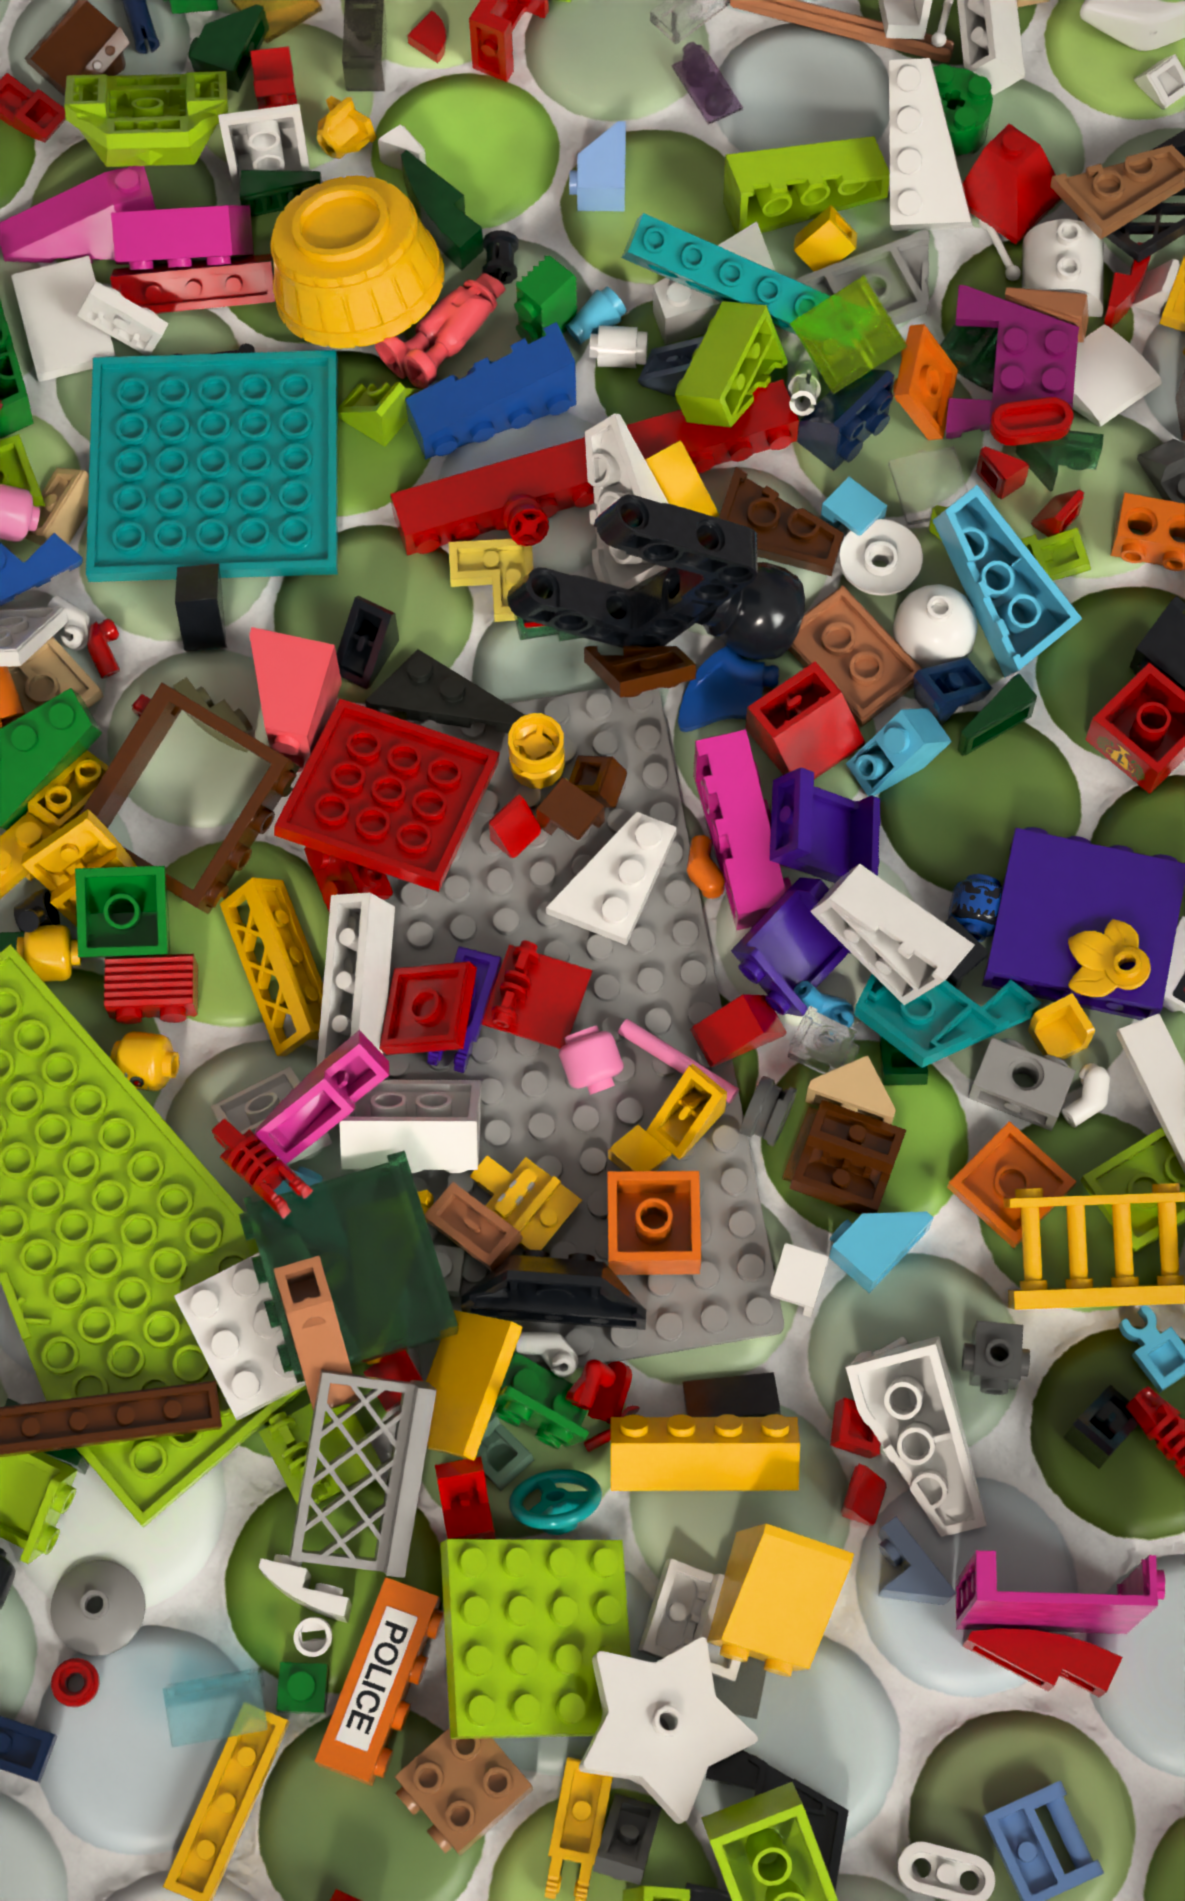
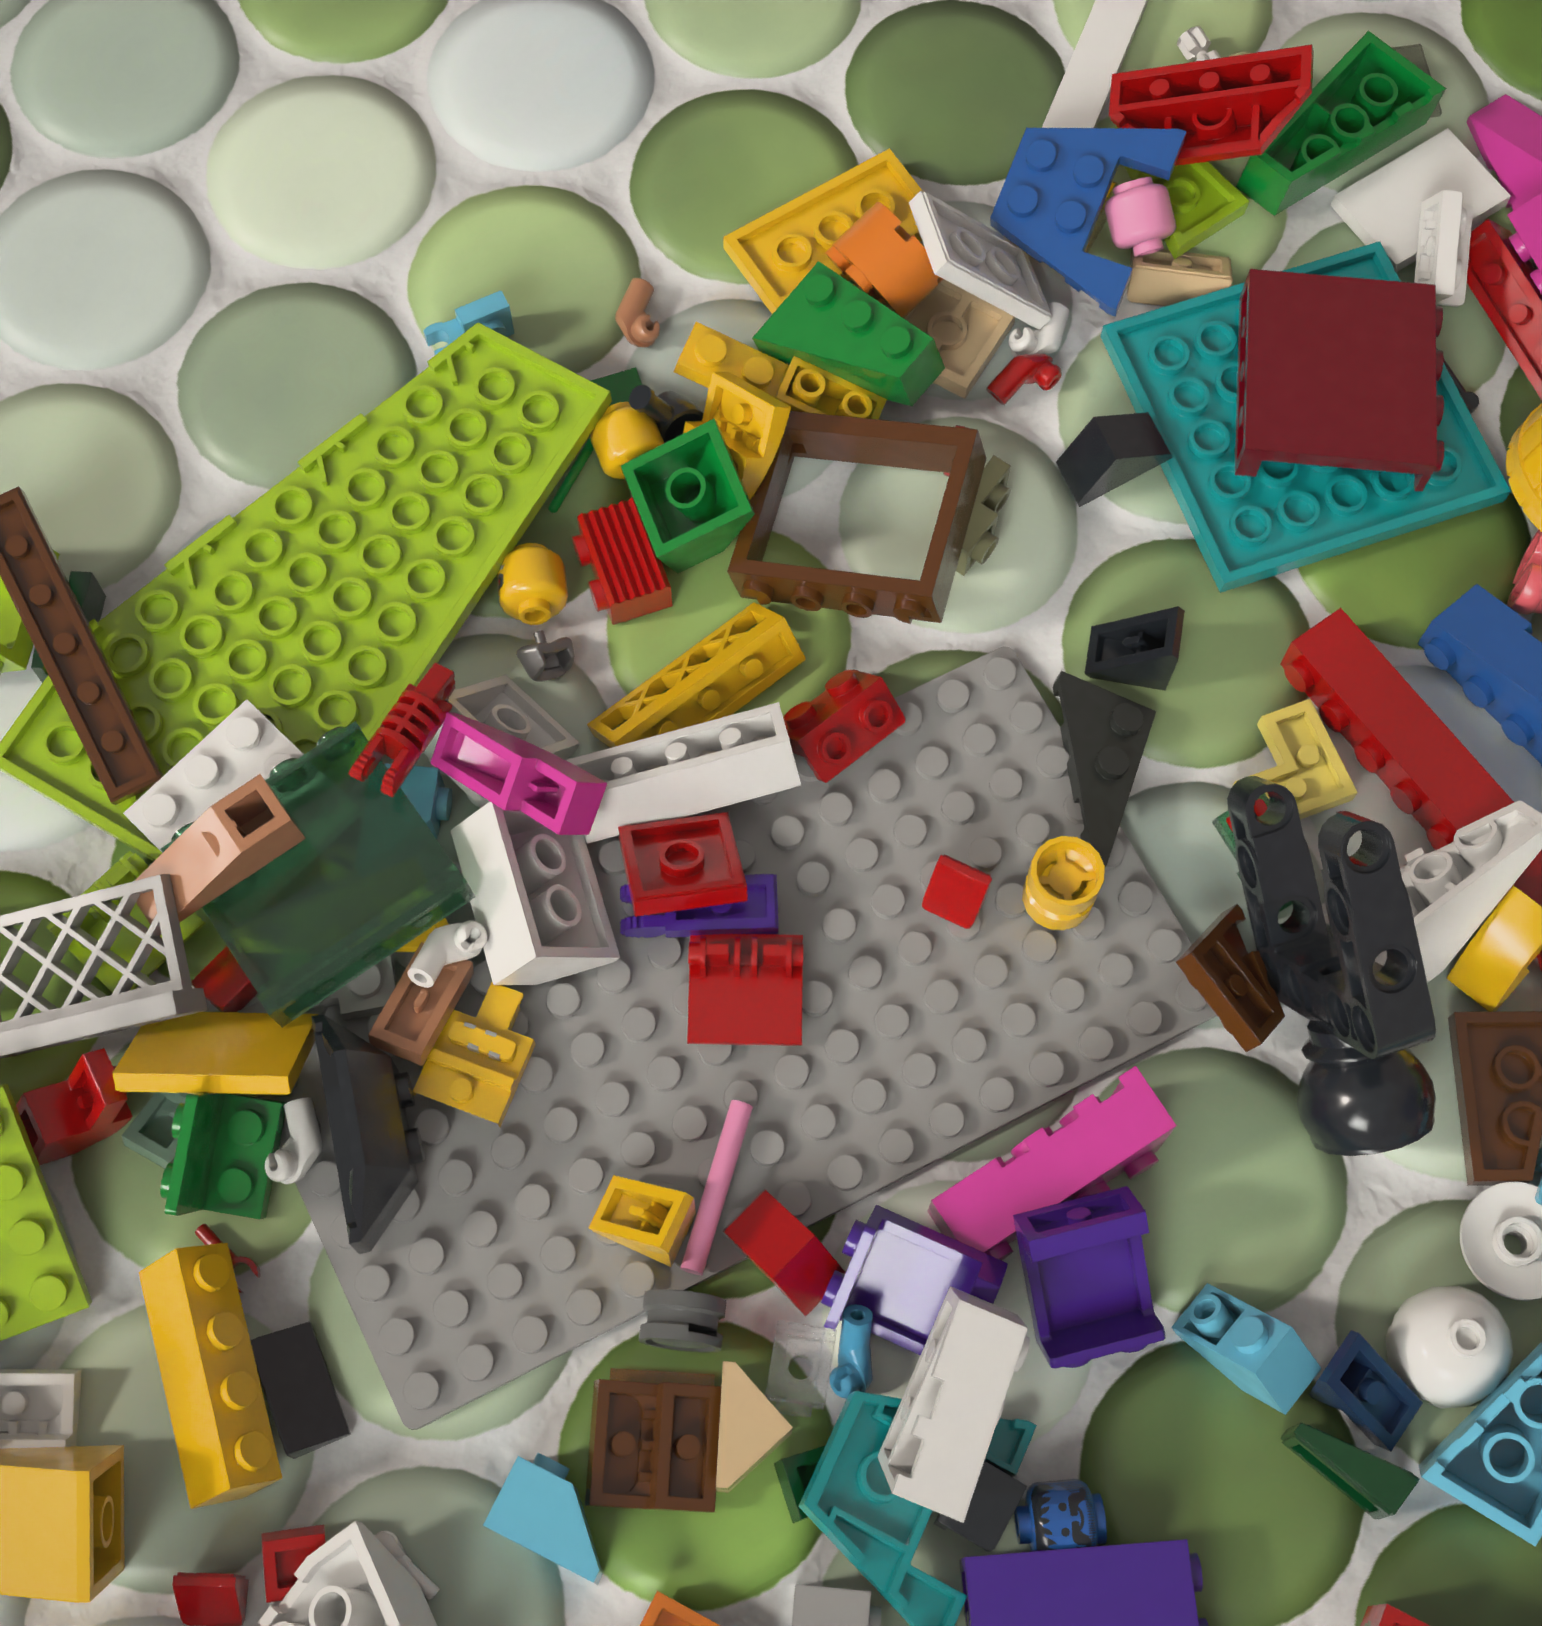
camera: 70 degrees right, 0 degrees up
(202, 427) = (1338, 374): none -> dark red panel
(209, 1068) = (546, 660): none -> flat silver piece
(296, 690) = (1028, 587): coral slope -> none
(377, 411) = (1453, 565): lime slope -> none
(387, 794) = (938, 730): red plate -> none
(437, 1193) = (446, 946): none -> white arm
(522, 529) = (1357, 776): red wheel -> none
(558, 1509) = (101, 1220): teal piece -> none
(569, 810) = (996, 947): reddish brown panel -> none
(591, 1059) = (678, 1077): bright pink head -> none
(600, 778) = (1058, 973): reddish brown slope -> none
(601, 1389) = (274, 1237): red piece -> none
(617, 880) = (935, 1040): white wing -> none
(638, 1151) = (577, 1175): yellow slope -> none
(654, 1222) = (480, 1217): orange brick -> none
(703, 870) = (989, 1139): orange arm -> none
(724, 689) = (1249, 1097): blue arm -> none
(799, 1277) = (470, 1427): white panel -> none
(804, 723) = (1231, 1211): red slope -> none
(855, 654) = (1364, 1247): nougat tile -> none

